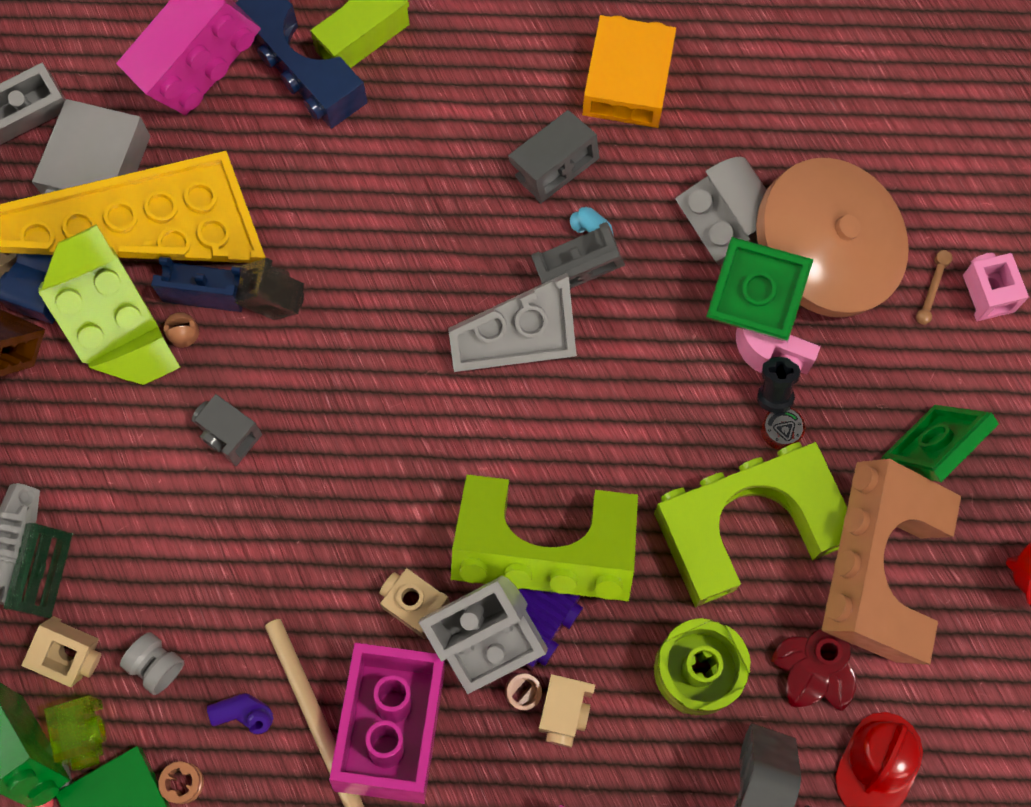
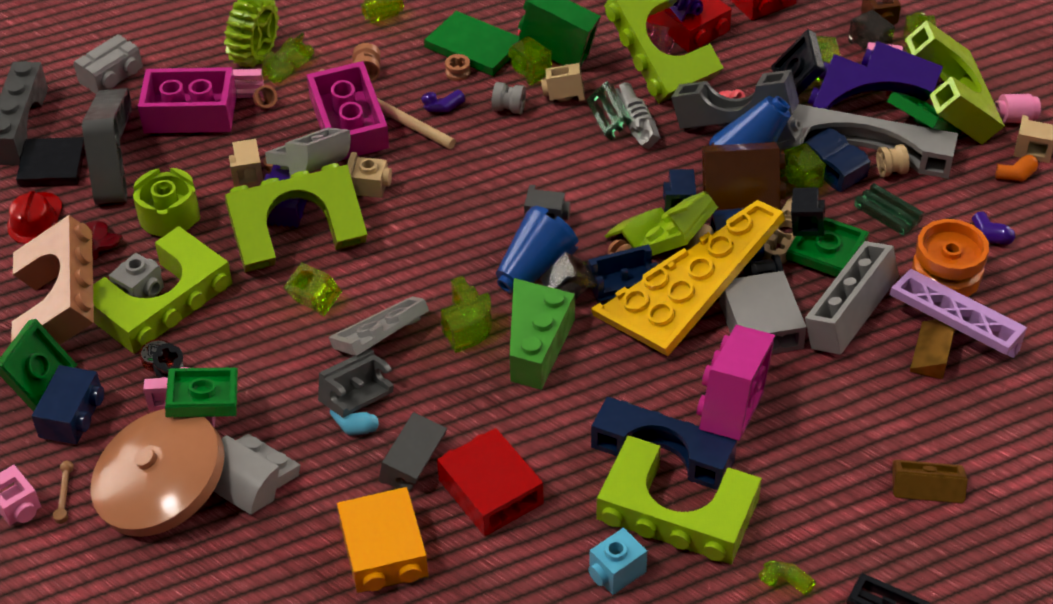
camera: 155 degrees right, 25 degrees down
(51, 376) = (680, 186): none -> dark blue brick
(283, 352) = (535, 248): none -> blue cone
(344, 242) = (538, 330): none -> bright green wedge
(407, 297) = (469, 318): none -> clear neon green brick
(494, 87) = (490, 481): none -> red brick
(569, 430) = (313, 288): none -> clear neon green brick
(778, 540) = (138, 277): none -> light grey brick
(909, 378) = (68, 404): none -> dark blue brick

